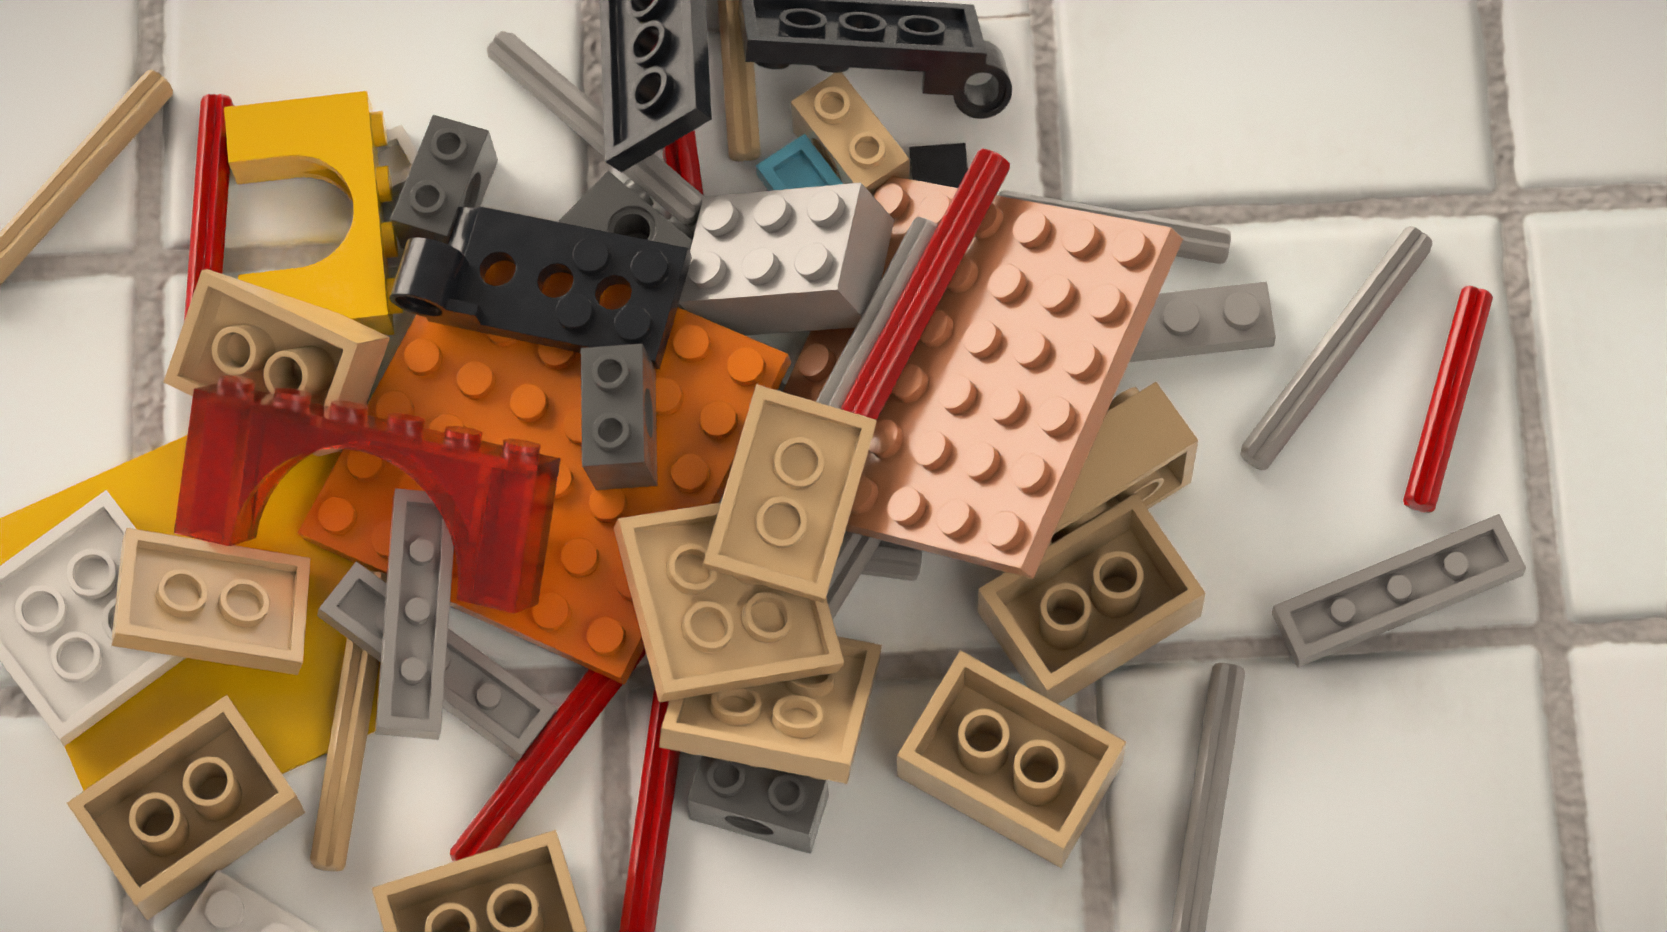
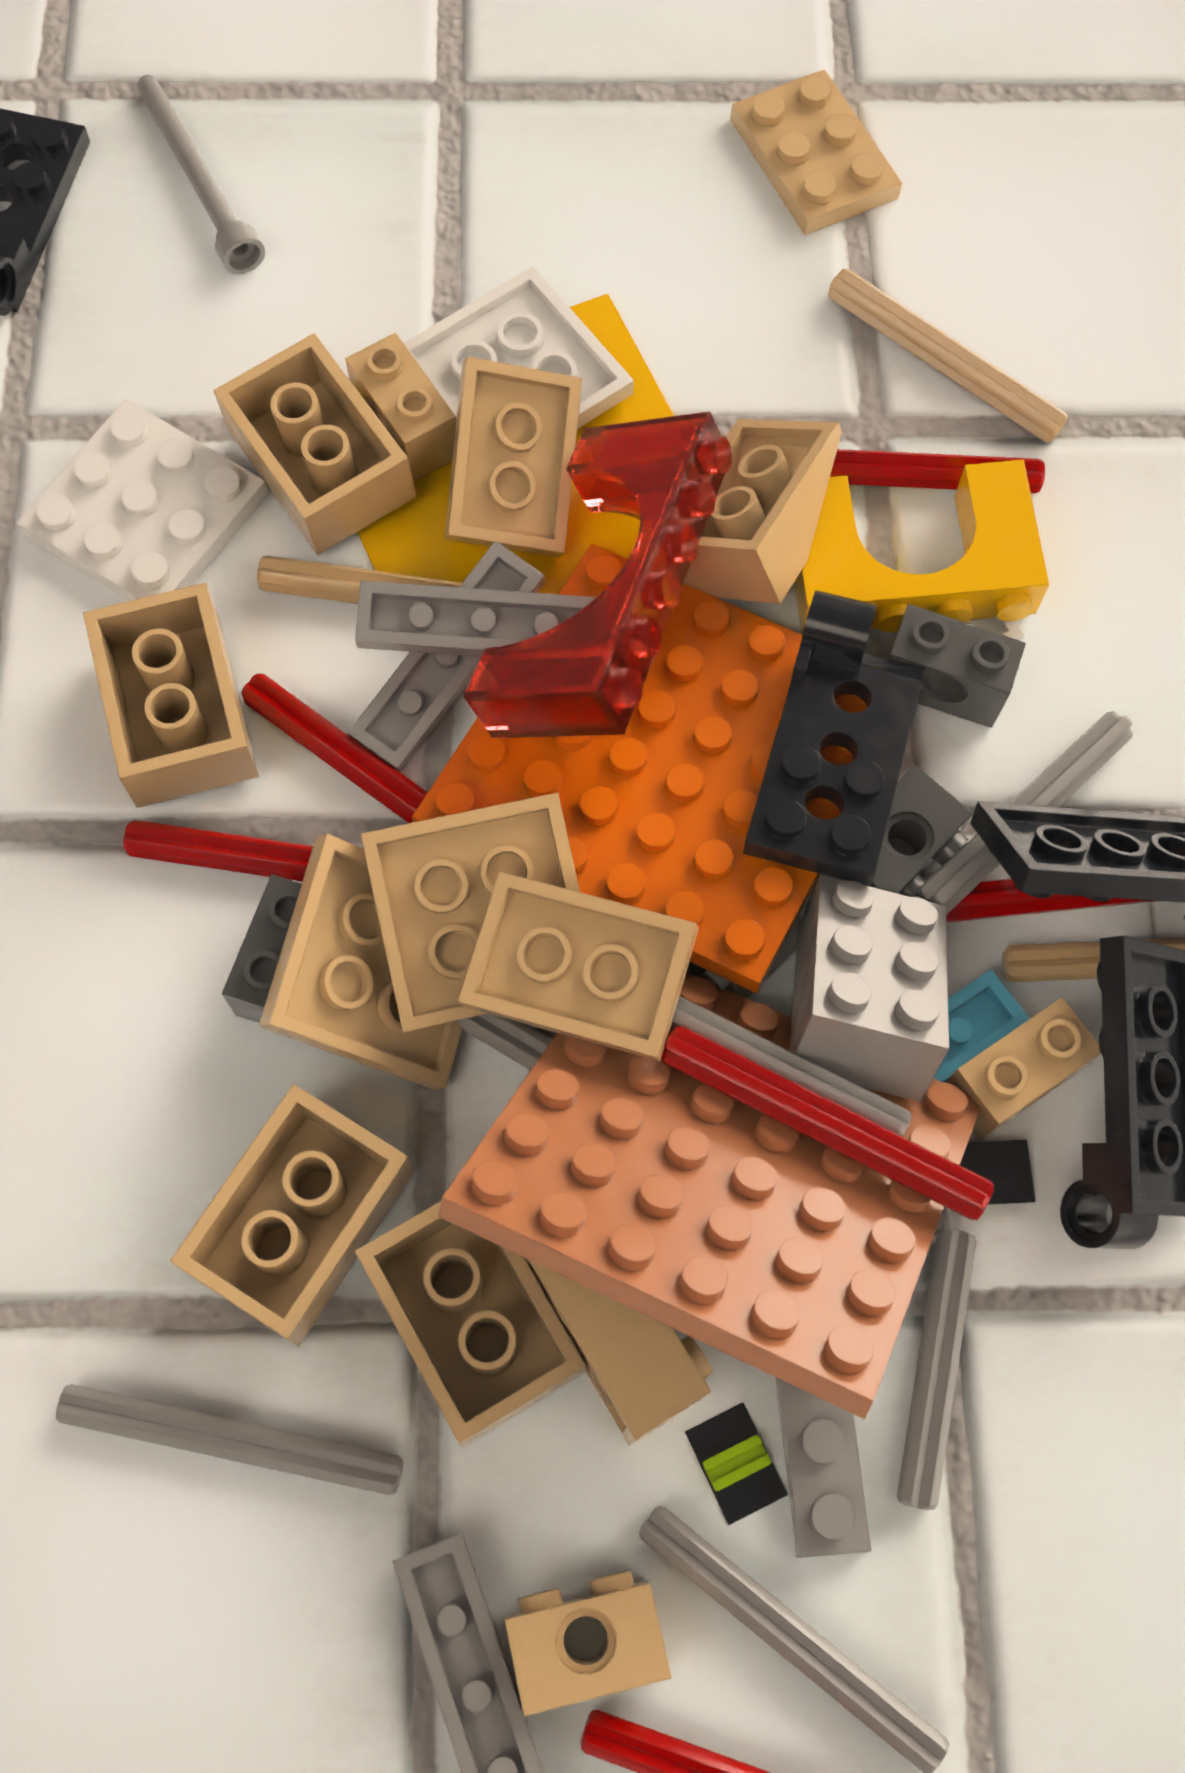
camera: 85 degrees right, 0 degrees up
(132, 717) = (405, 403): none -> tan brick
(618, 417) = (679, 800): dark grey brick -> none
(1206, 391) = (736, 1463): none -> black piece
(1358, 468) = (554, 1678): none -> tan brick

